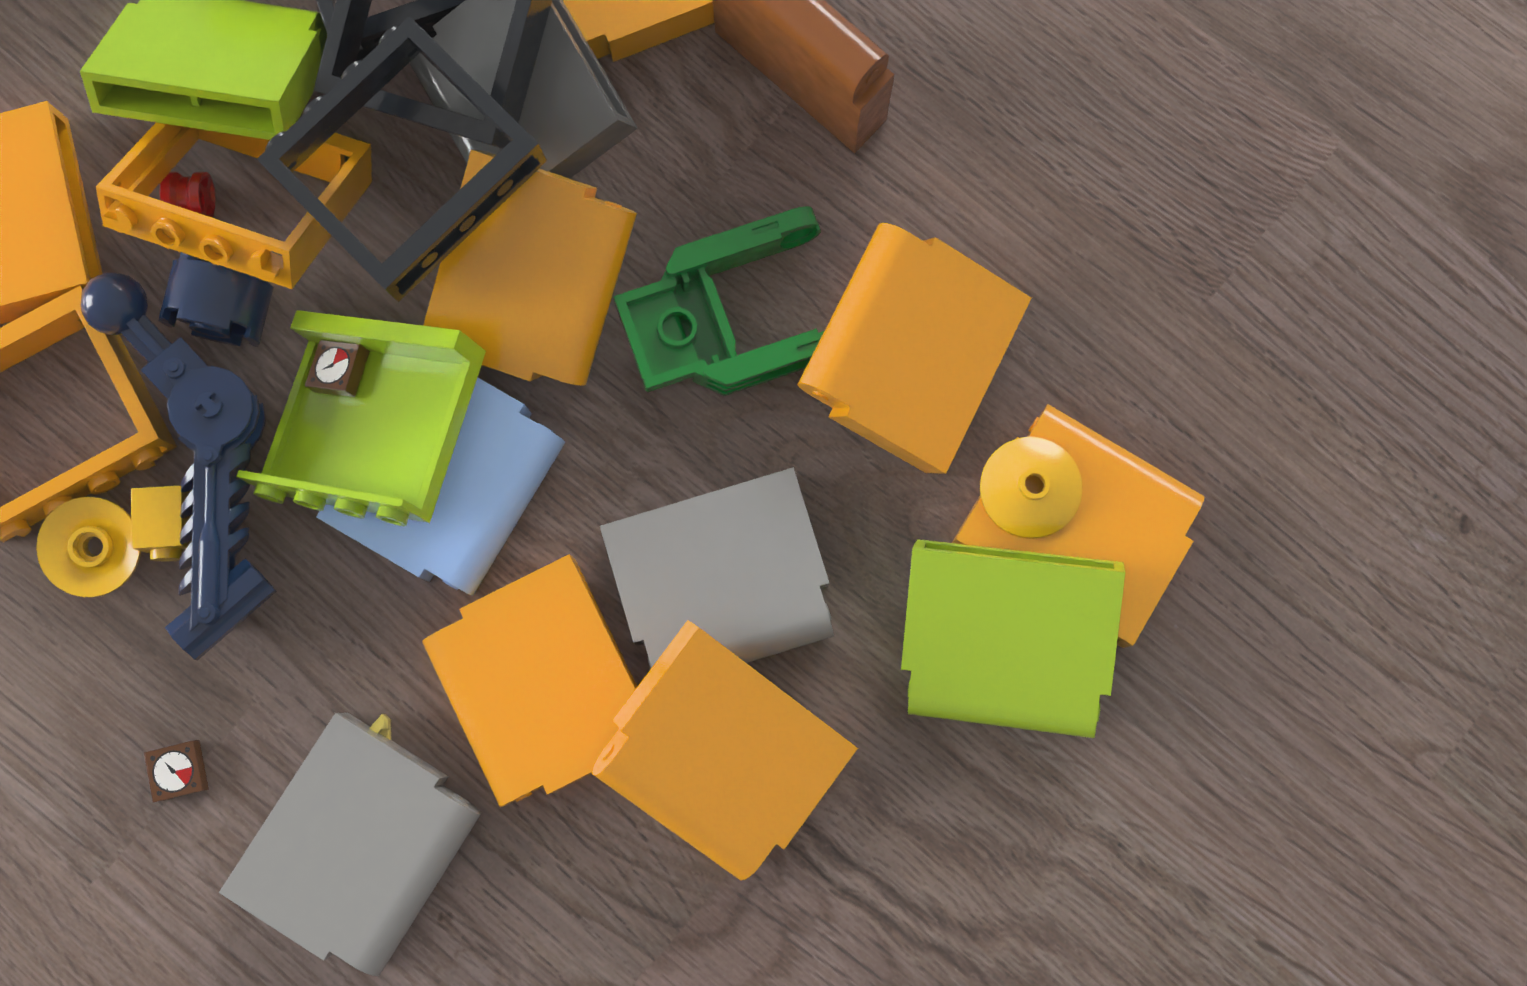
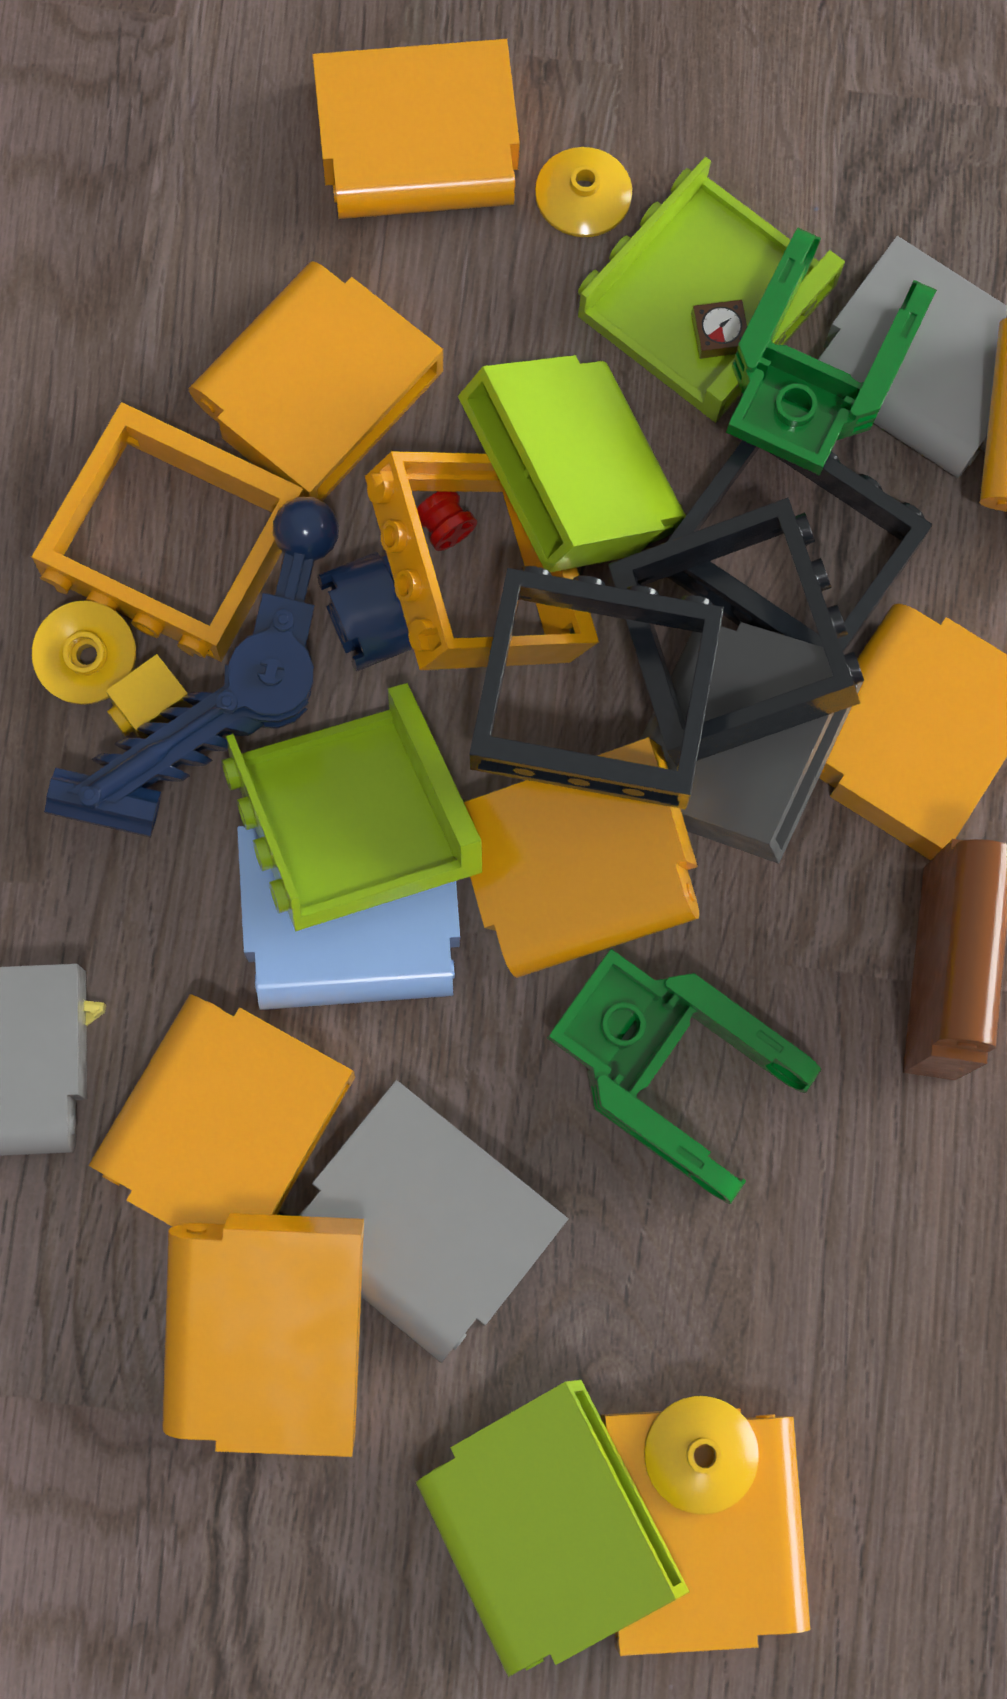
camera: 45 degrees right, 5 degrees down
(337, 368) = (380, 753): reddish brown tile -> none
(913, 346) = (756, 1254): light orange piece -> none

